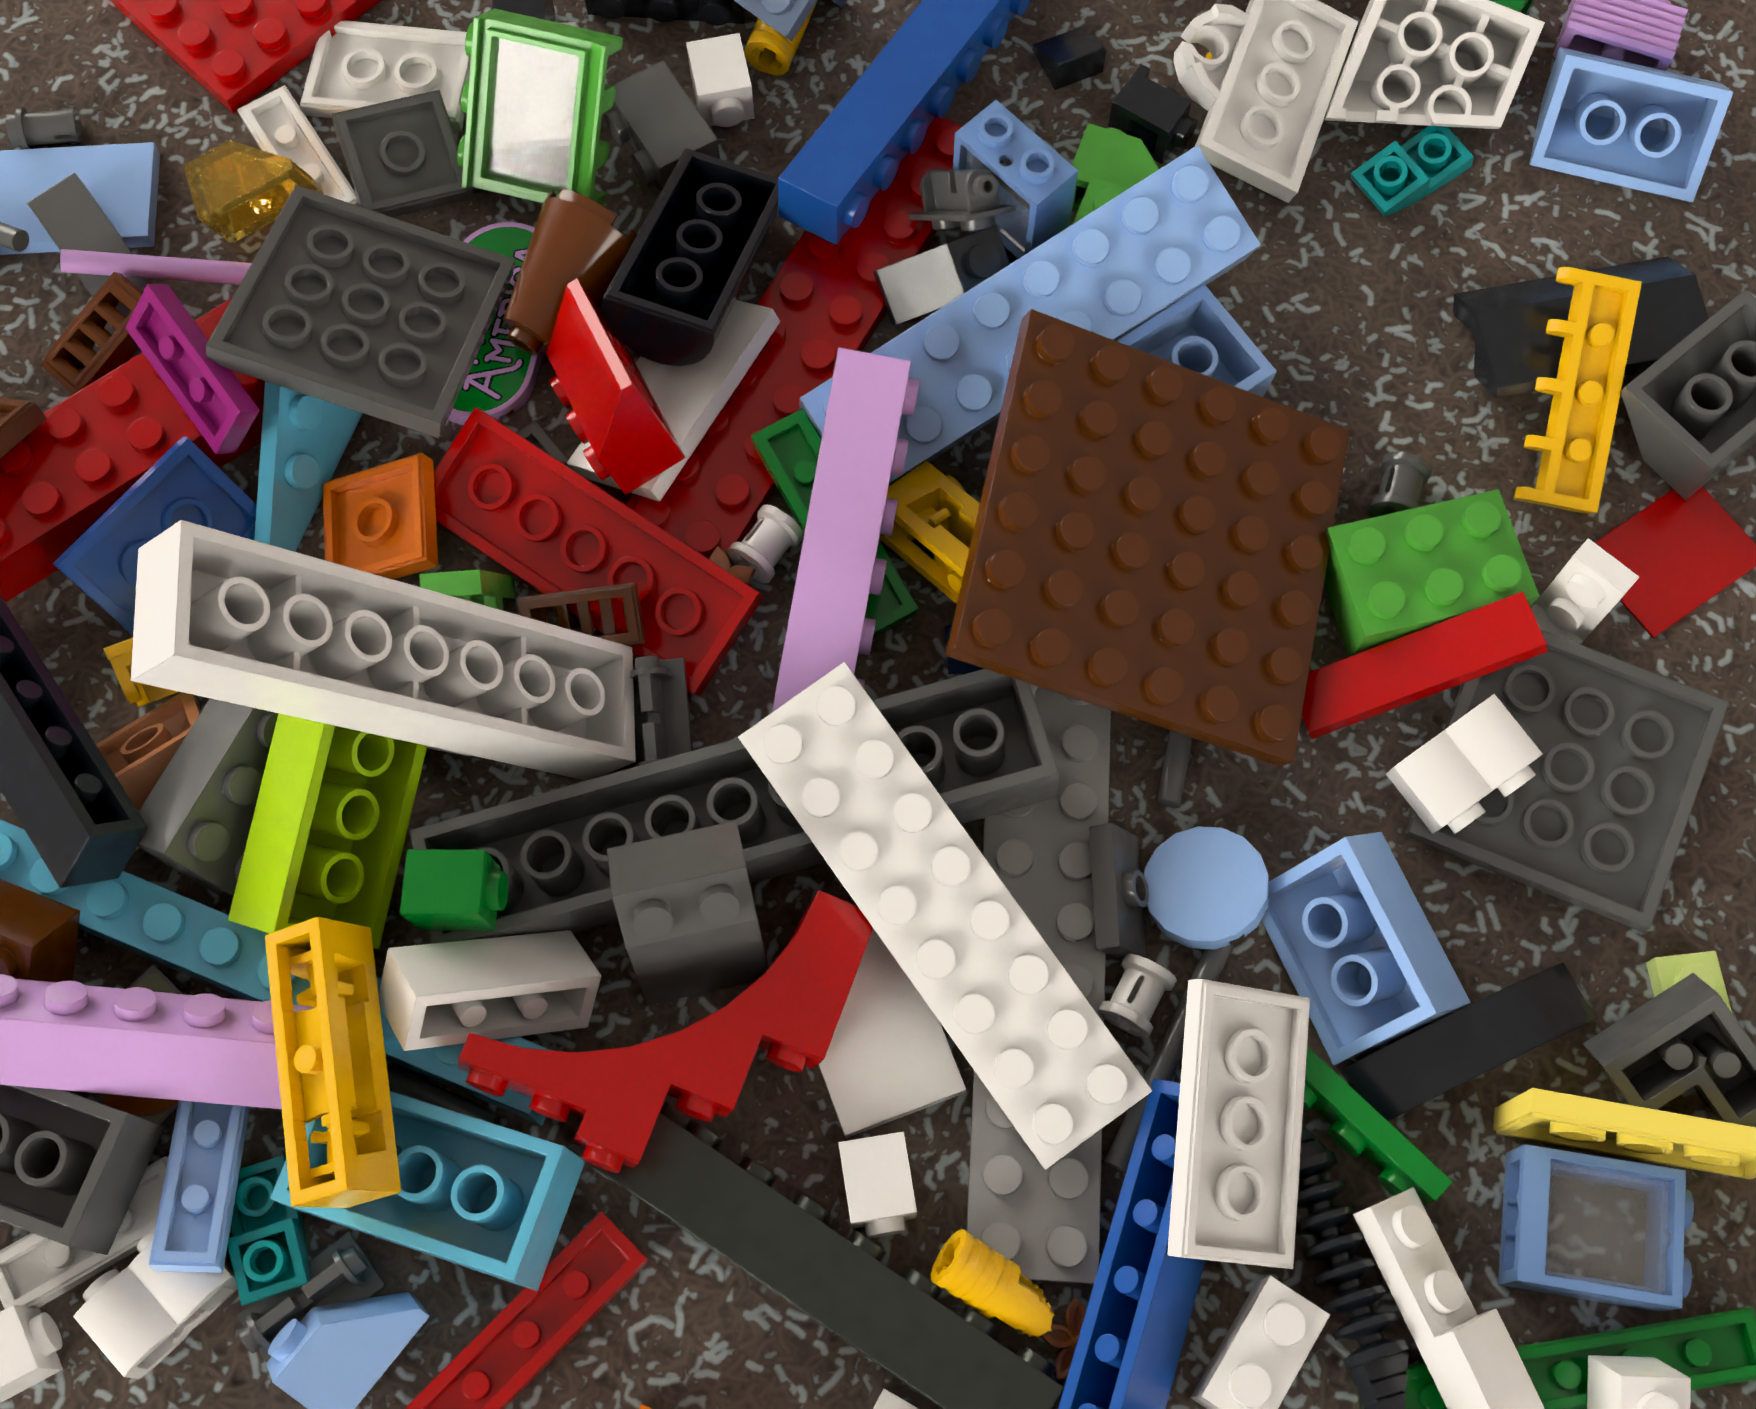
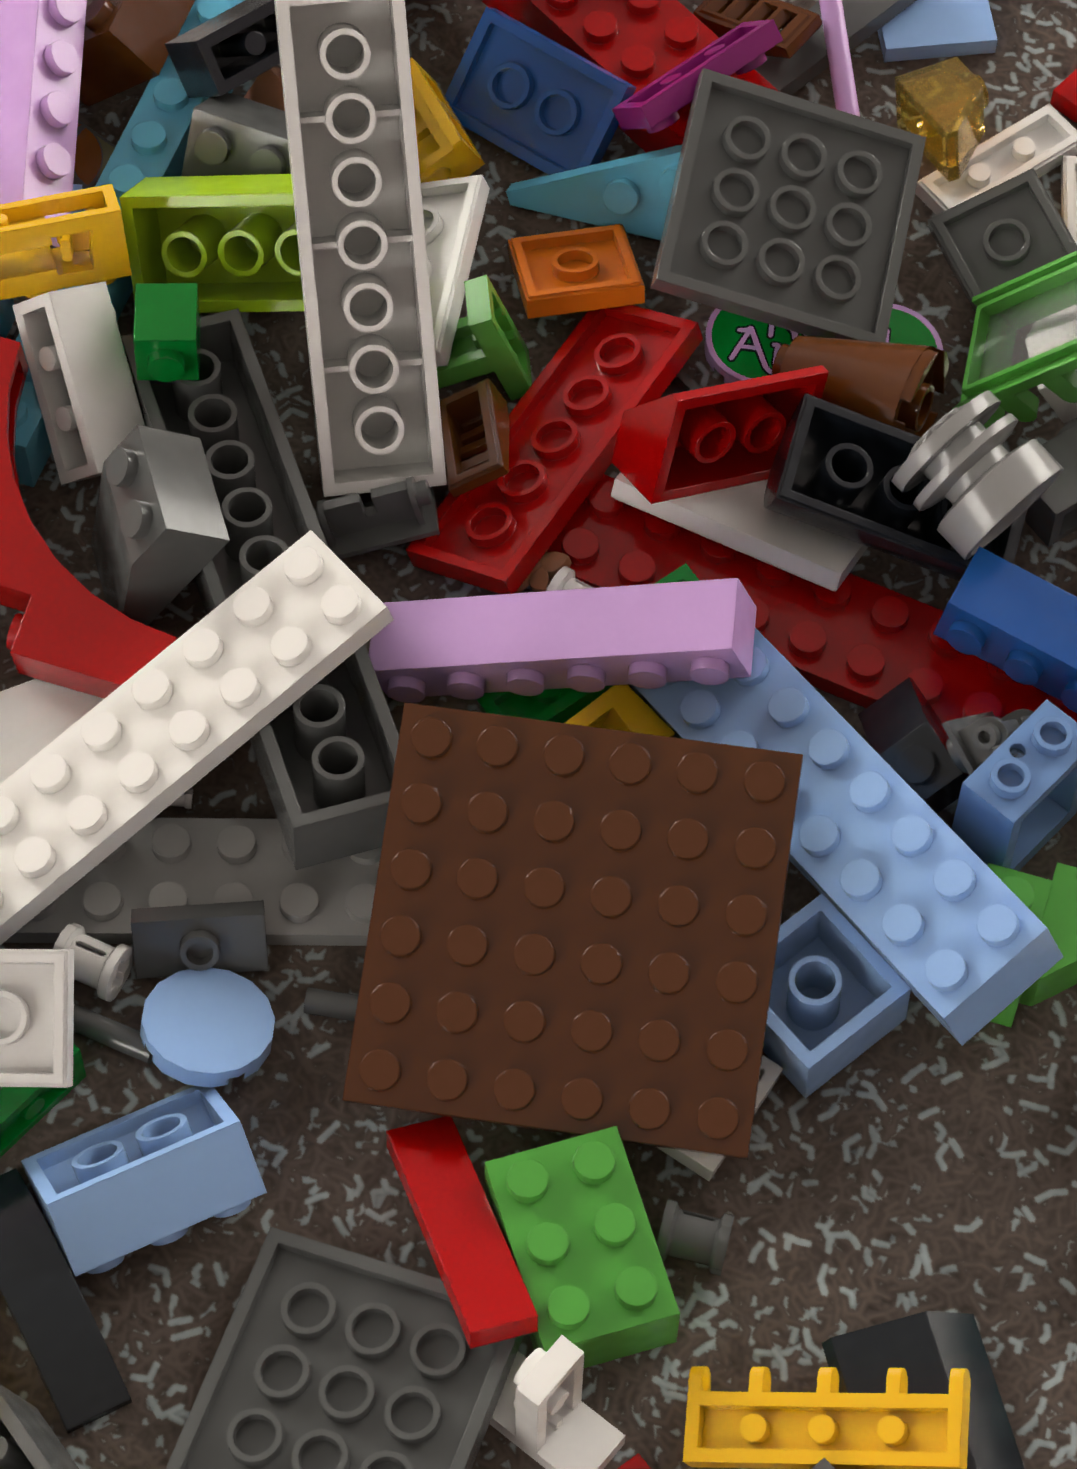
camera: 85 degrees right, 10 degrees down
(717, 159) = (976, 473): none -> light grey wheel
(1464, 765) = (333, 1260): white brick -> none

